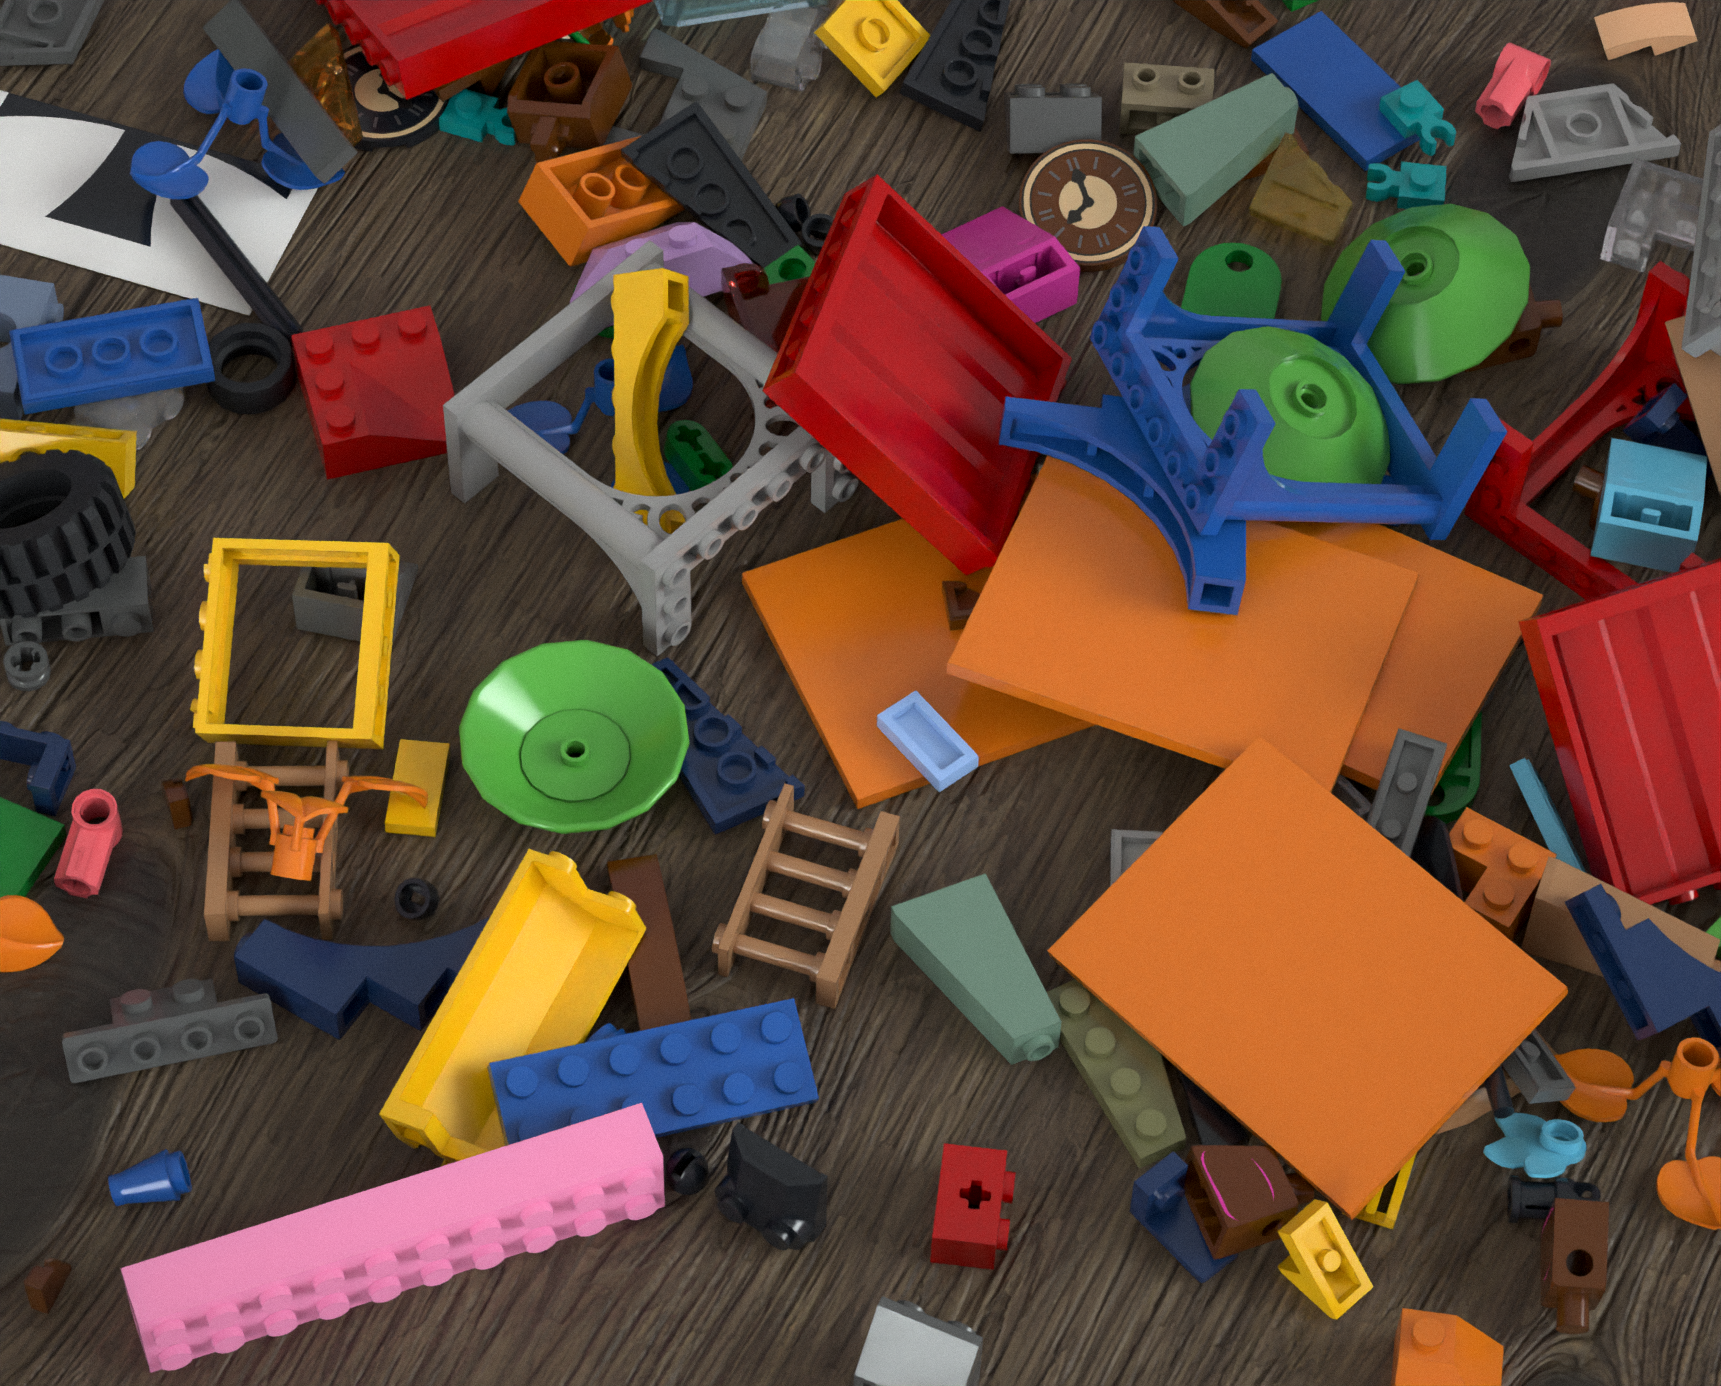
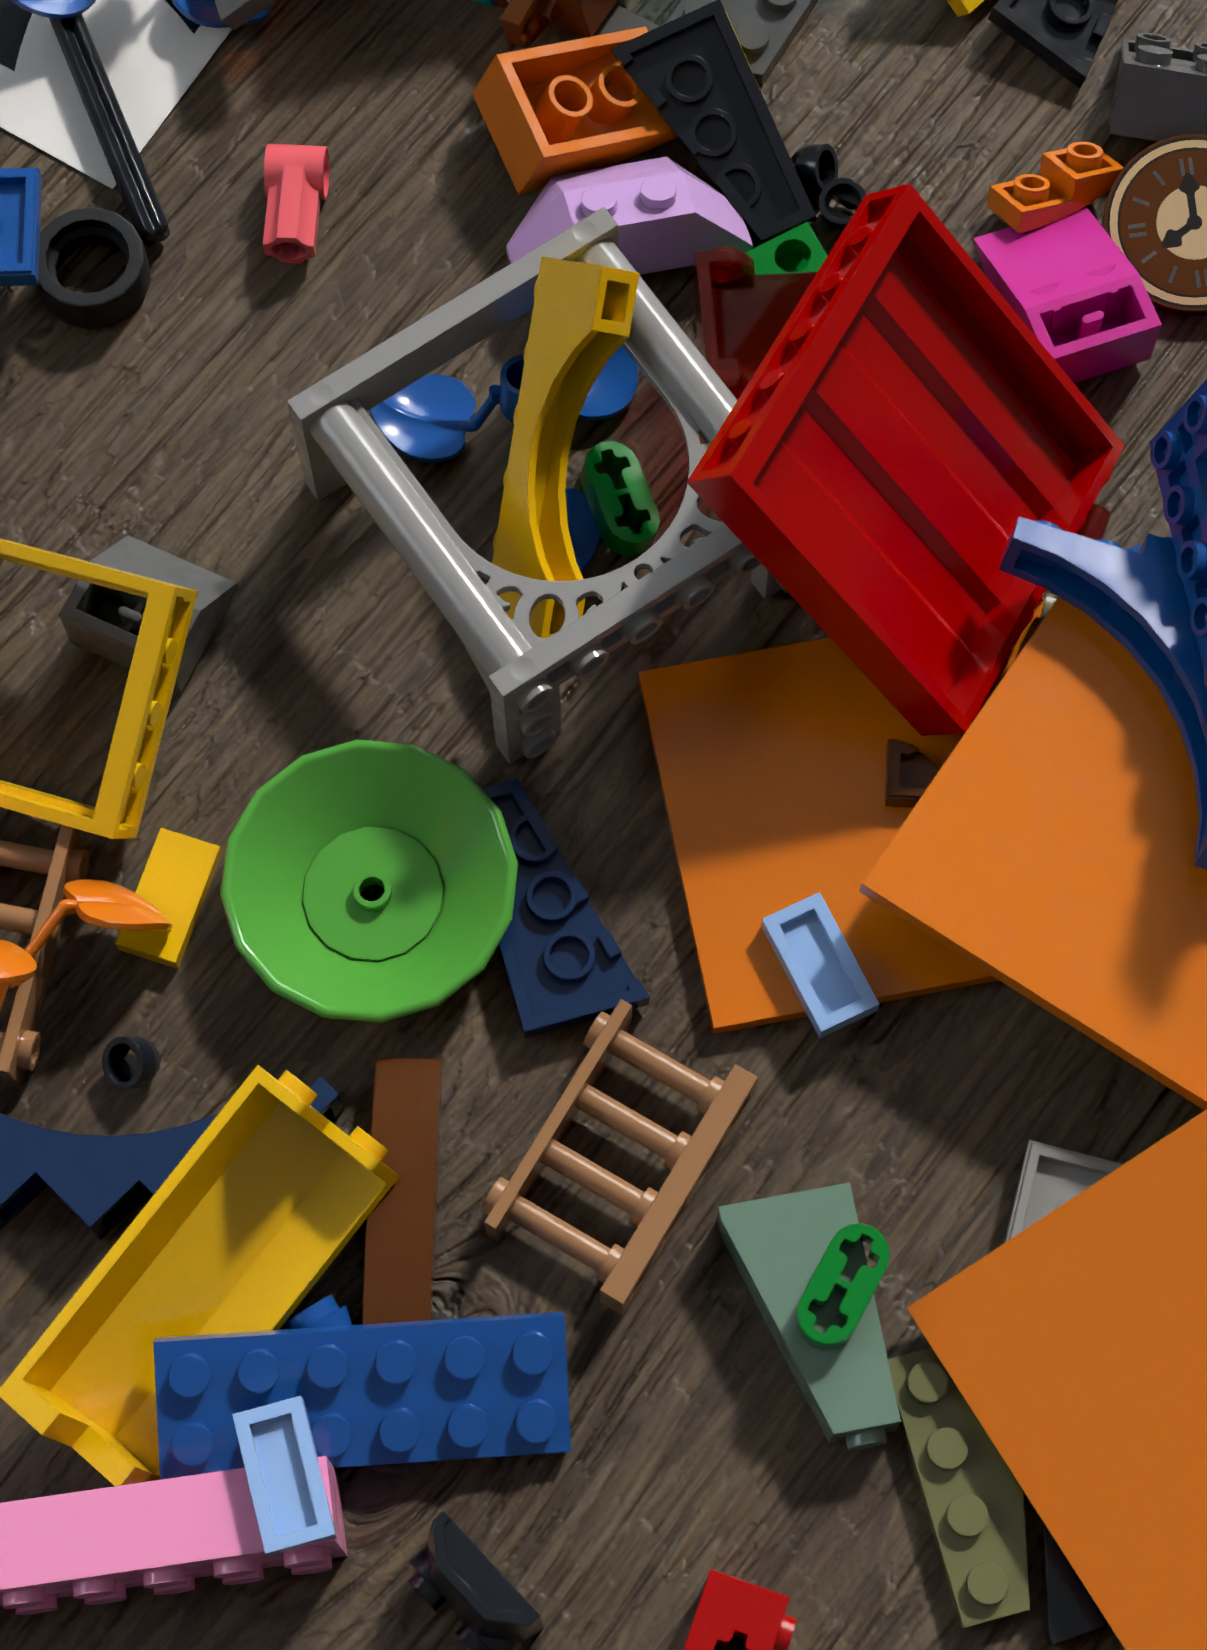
camera: 15 degrees right, 15 degrees up
(375, 390) = (235, 328): red slope -> none
(394, 283) = (294, 186): none -> coral piece
(615, 1117) = (284, 1476): none -> light blue tile
(695, 1175) = (394, 1526): black hinge -> none
(982, 196) = (1065, 185): none -> orange slope
(987, 934) = (827, 1278): none -> green beam

